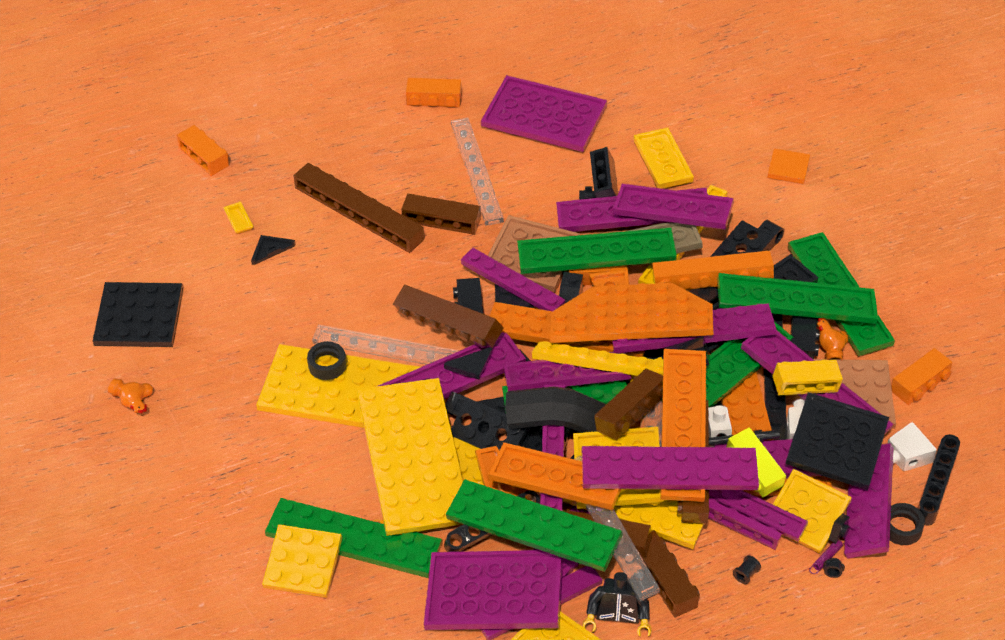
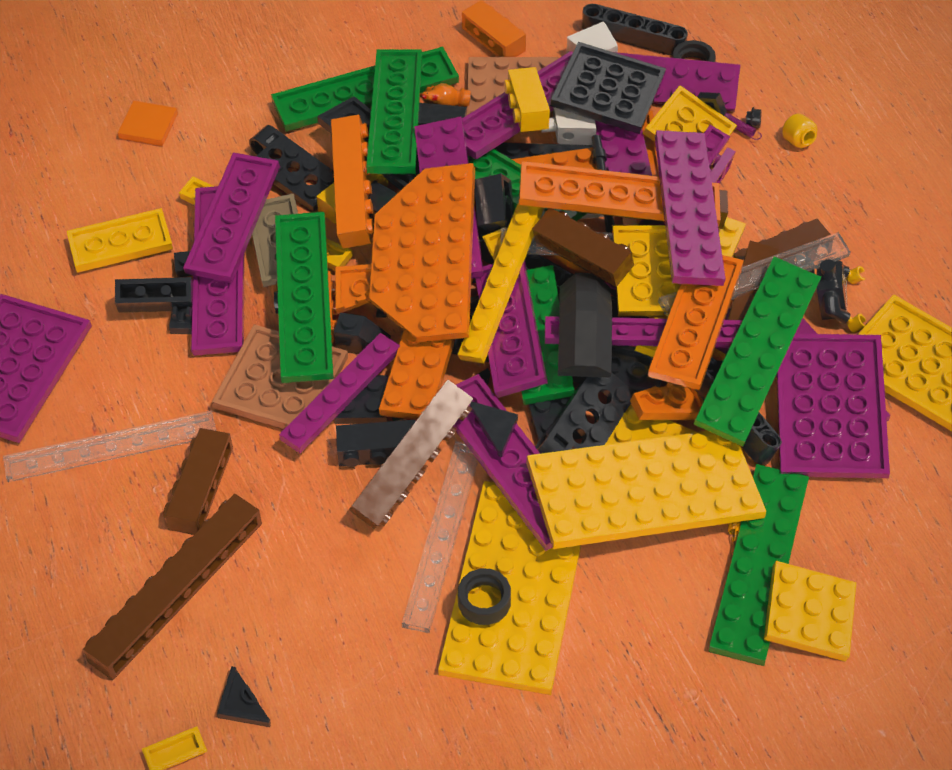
camera: 90 degrees left, 5 degrees up
(746, 569) = (767, 185): black bush -> none
(769, 473) = (634, 155): neon yellow brick -> none
(817, 599) = (799, 130): none -> yellow head

